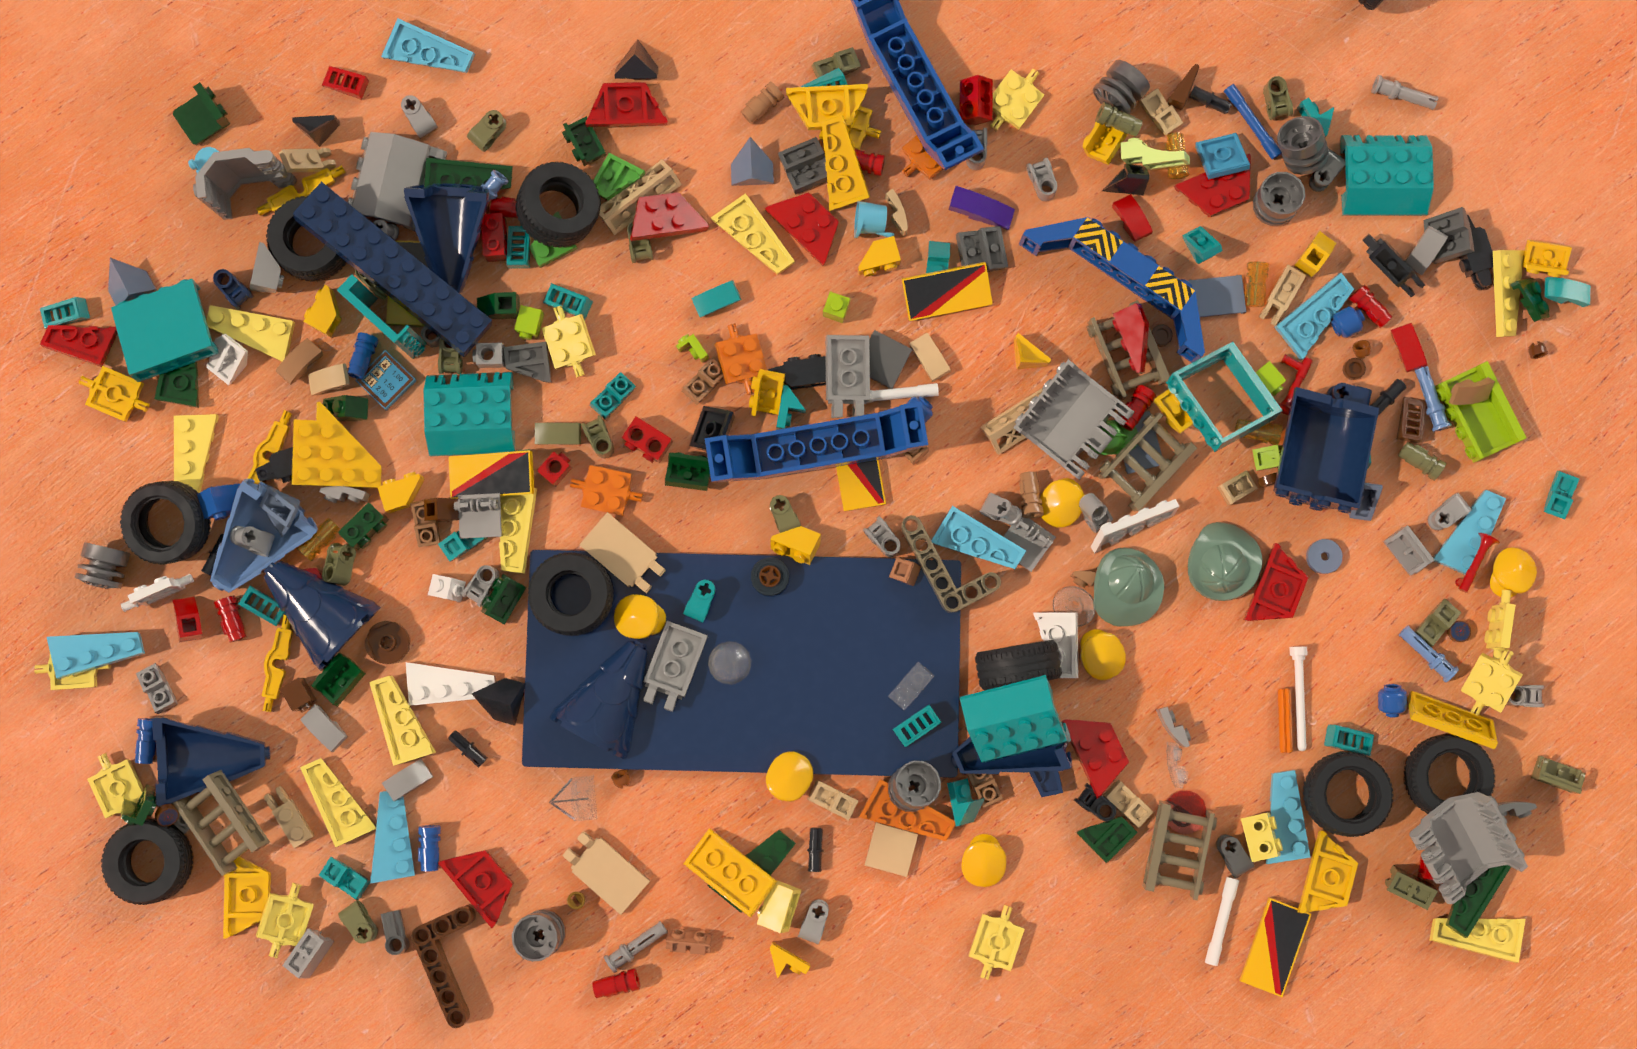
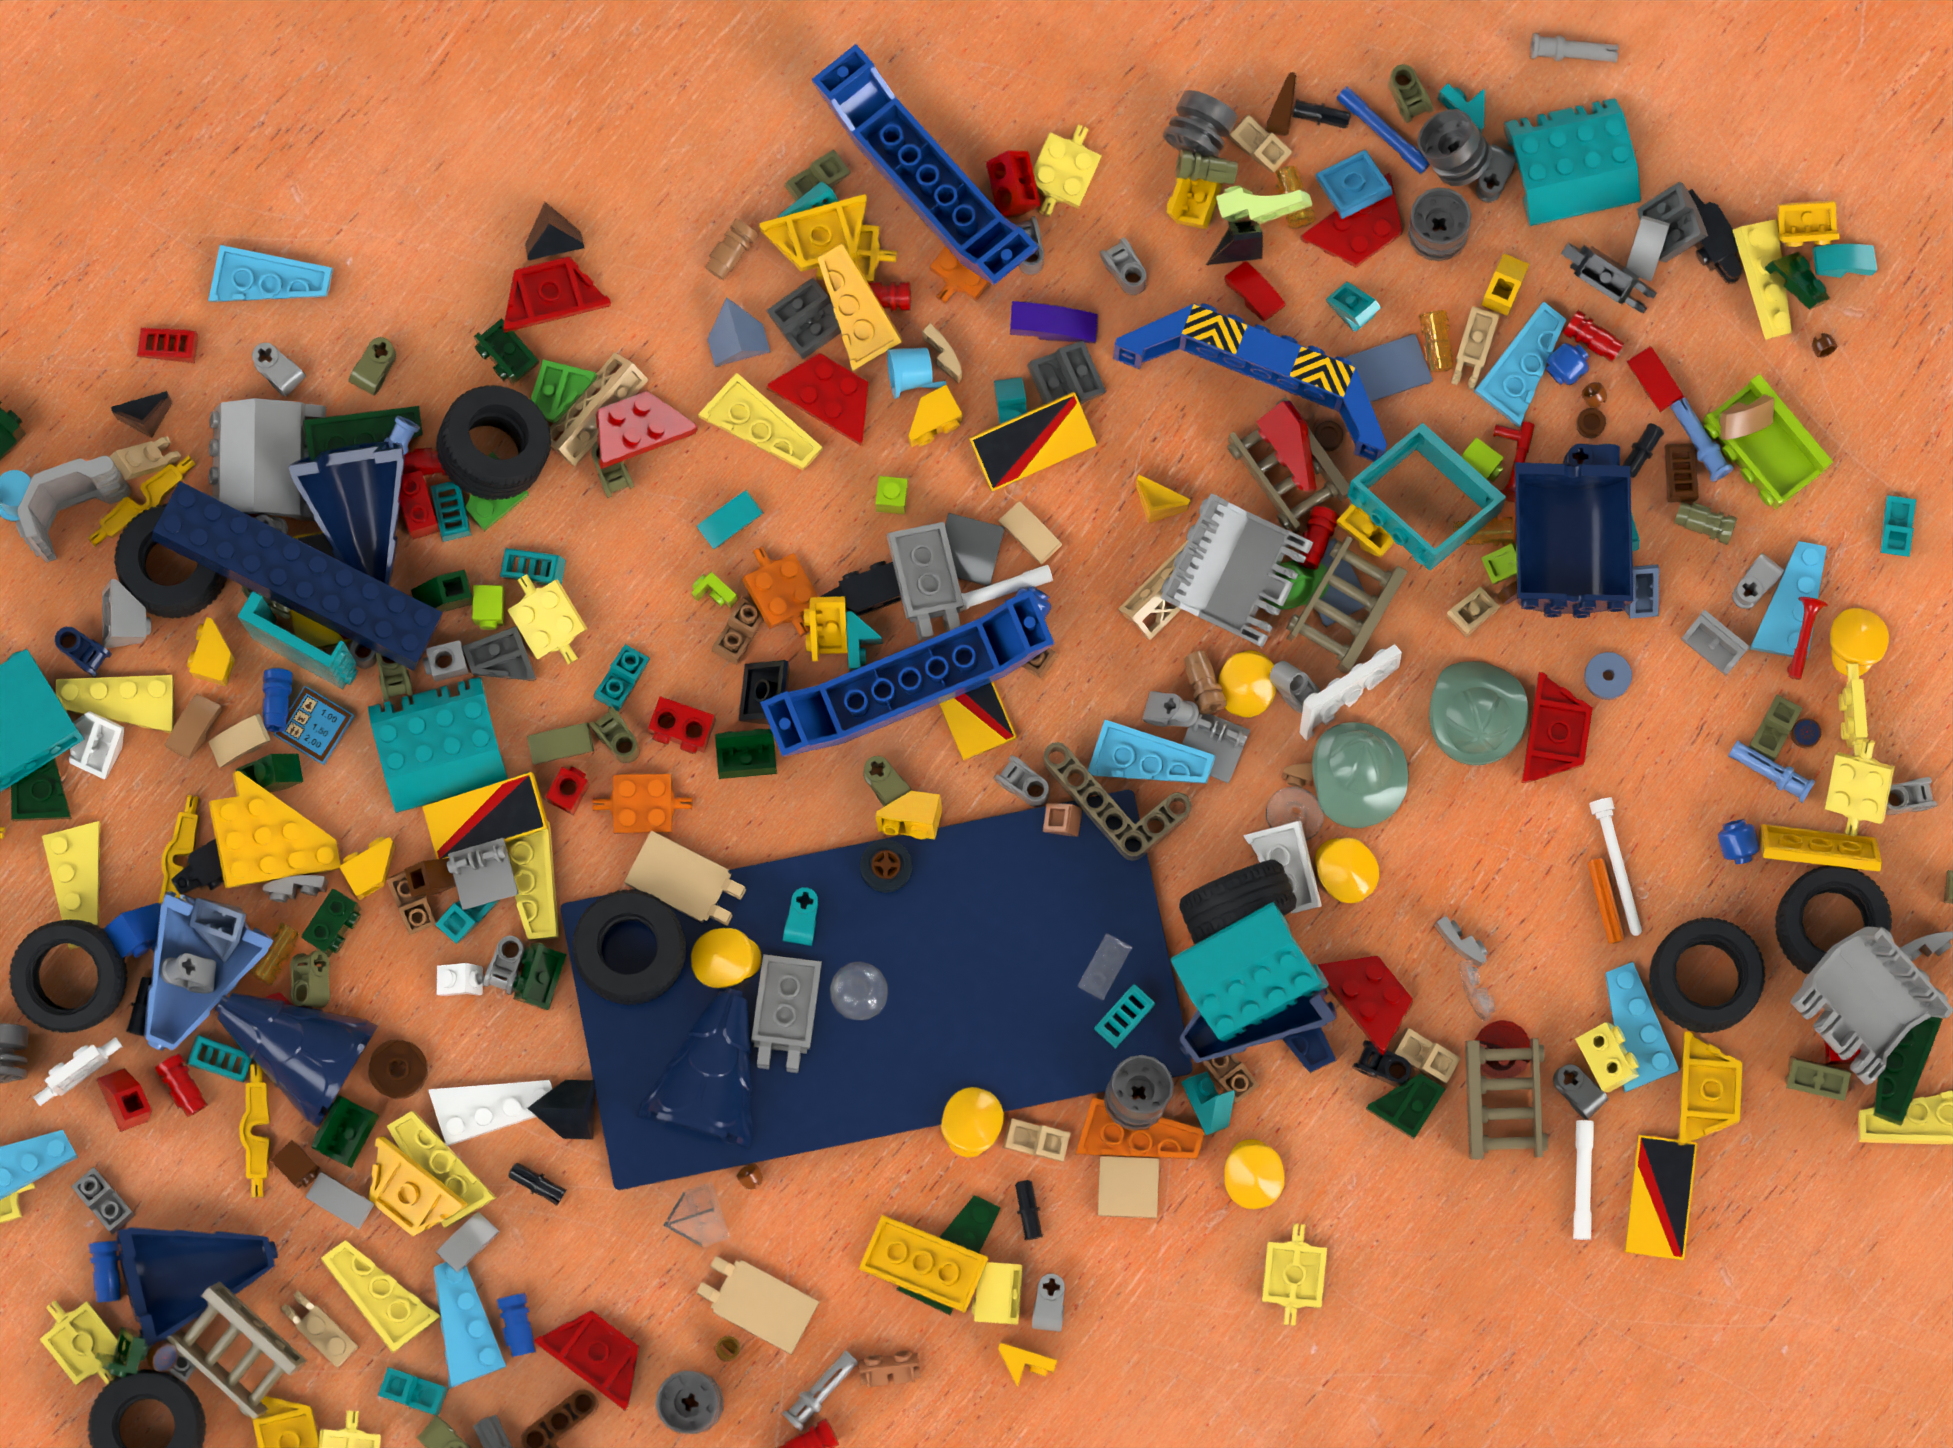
camera: 15 degrees left, 5 degrees down
(373, 733) = (409, 1191): none -> yellow wing
(1335, 736) = (1671, 905): teal slope -> none

